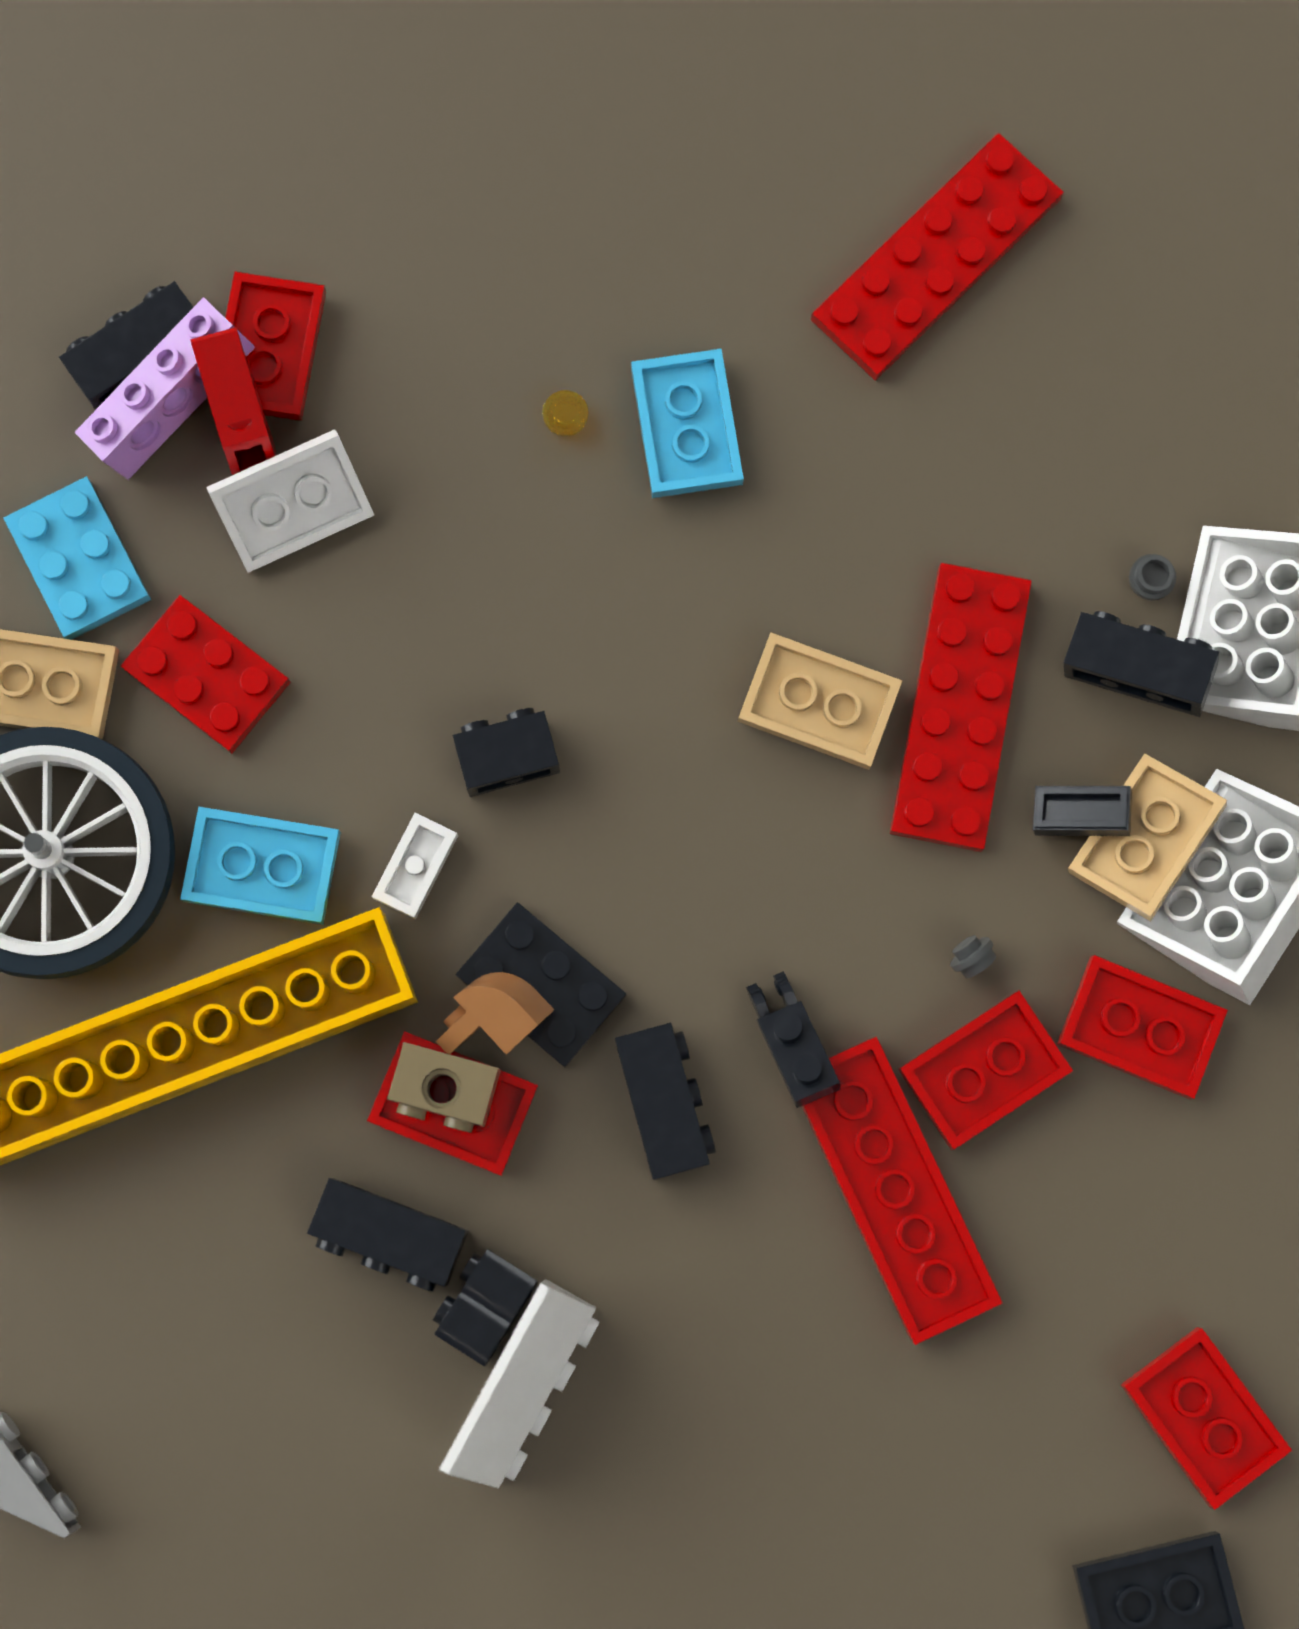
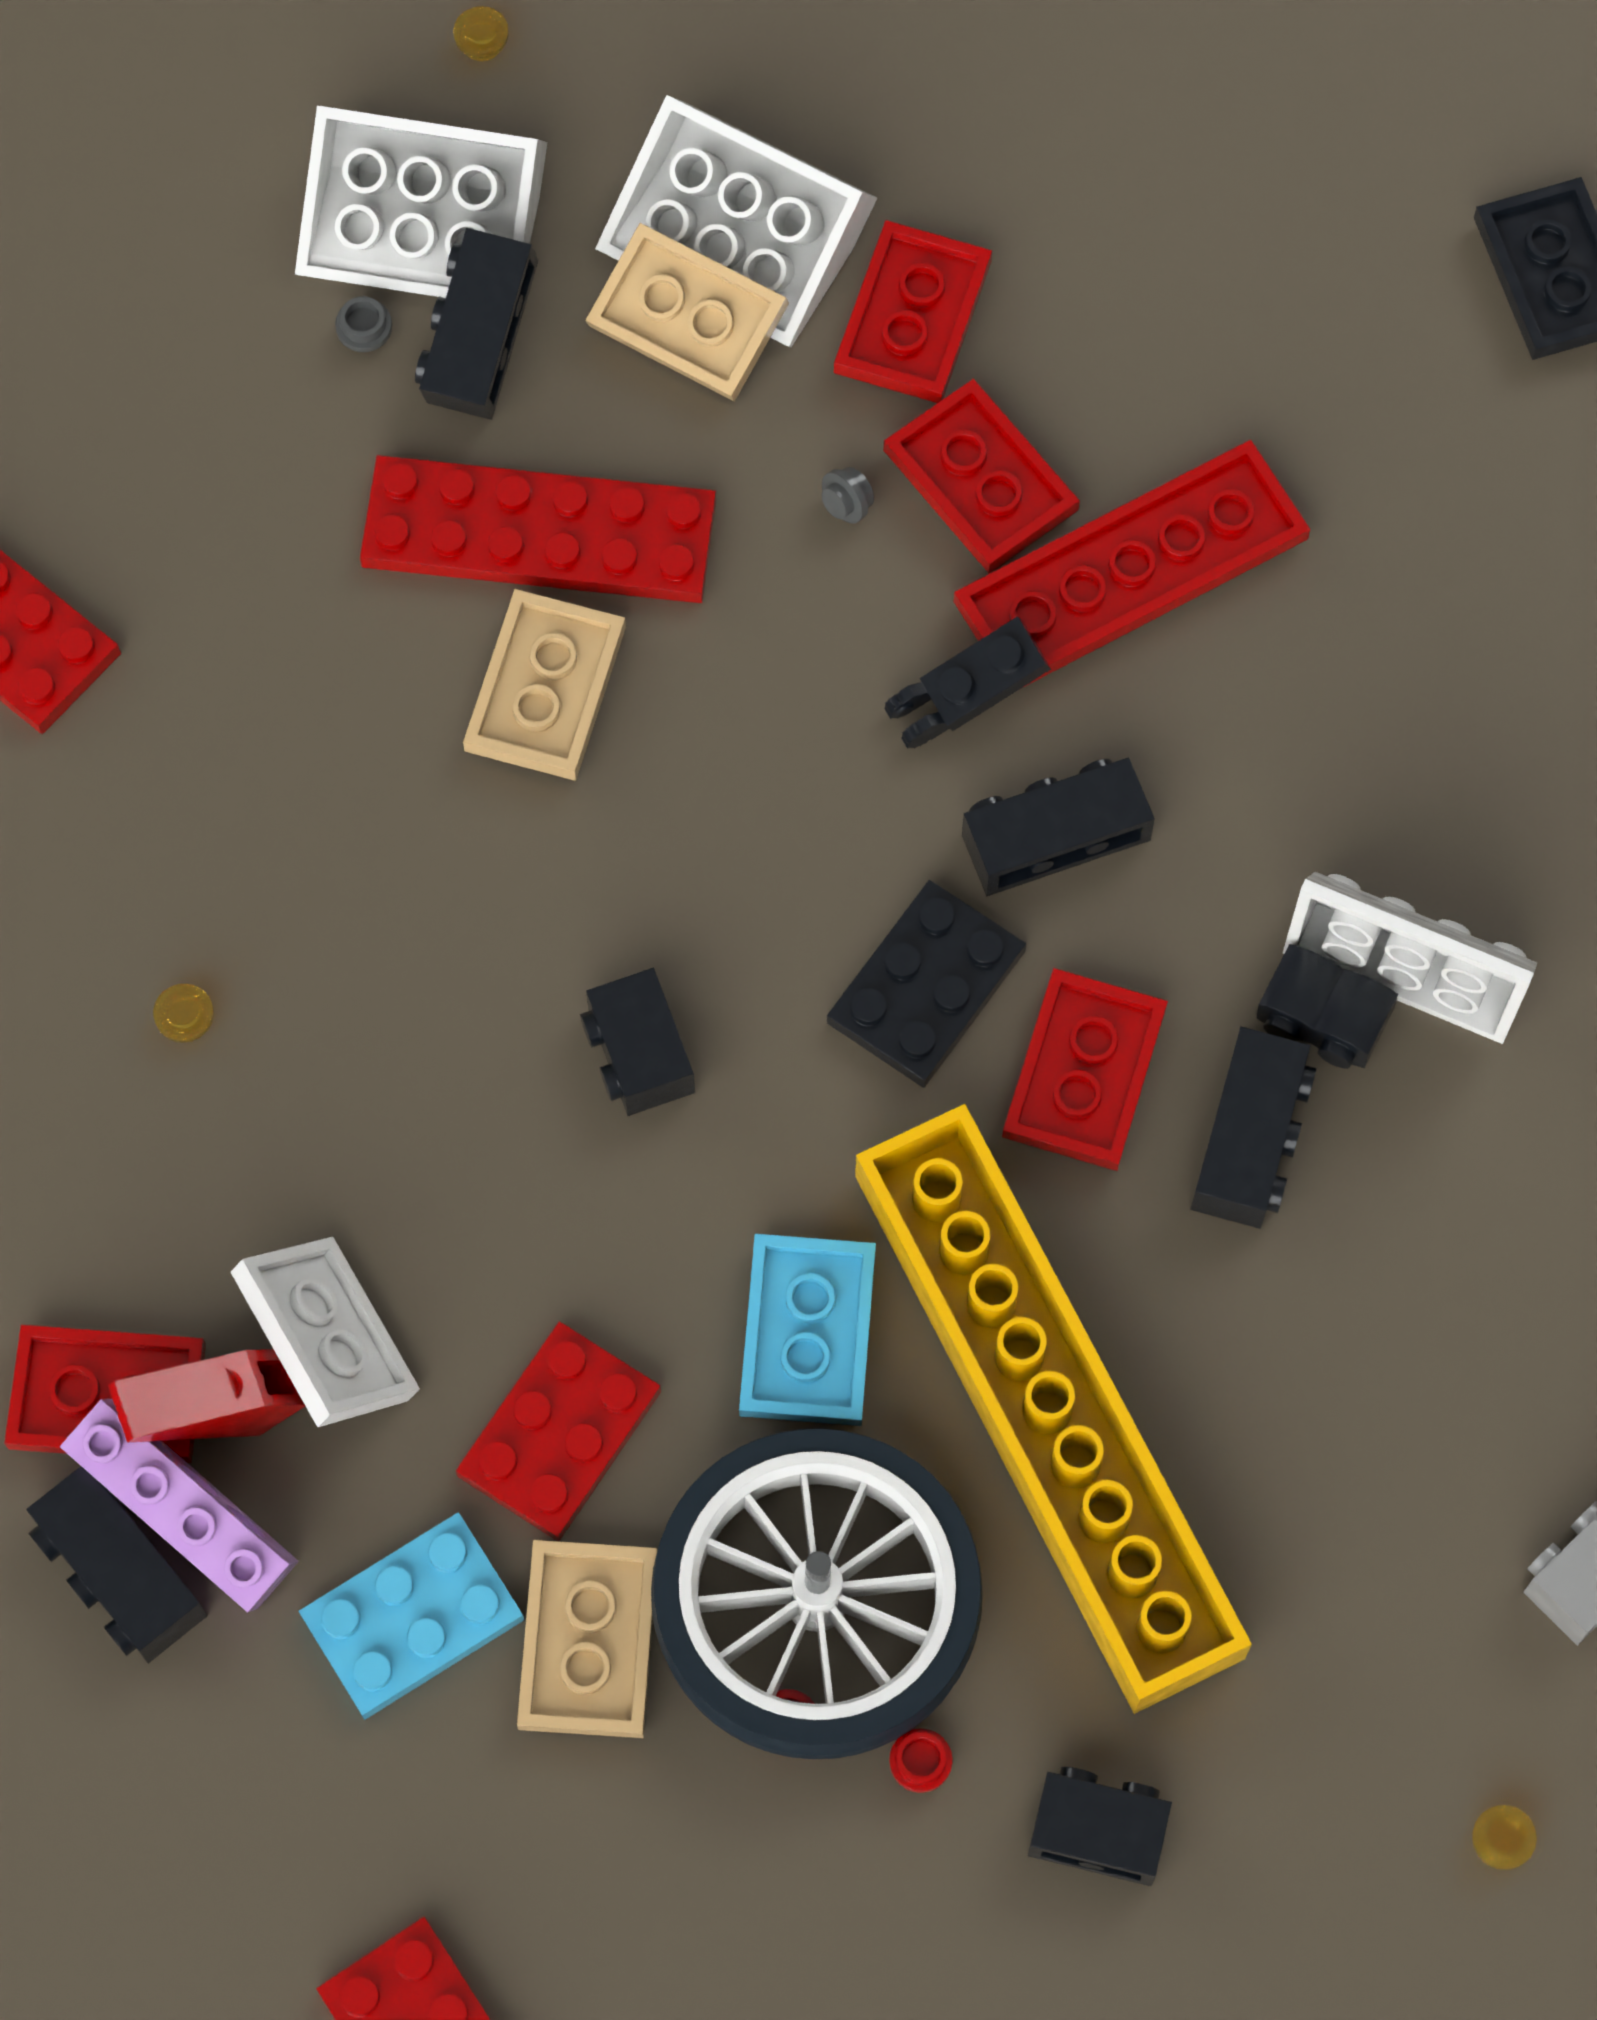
camera: 90 degrees left, 10 degrees down
(415, 866) = (792, 1141): white plate -> none
(418, 1070) = (1070, 1029): dark tan brick -> none
(501, 1006) = (961, 1013): medium nougat brick -> none
(687, 423) = (191, 863): medium azure plate -> none
(1082, 811) = (661, 383): black tile -> none
(1206, 1418) = (1350, 228): red plate -> none

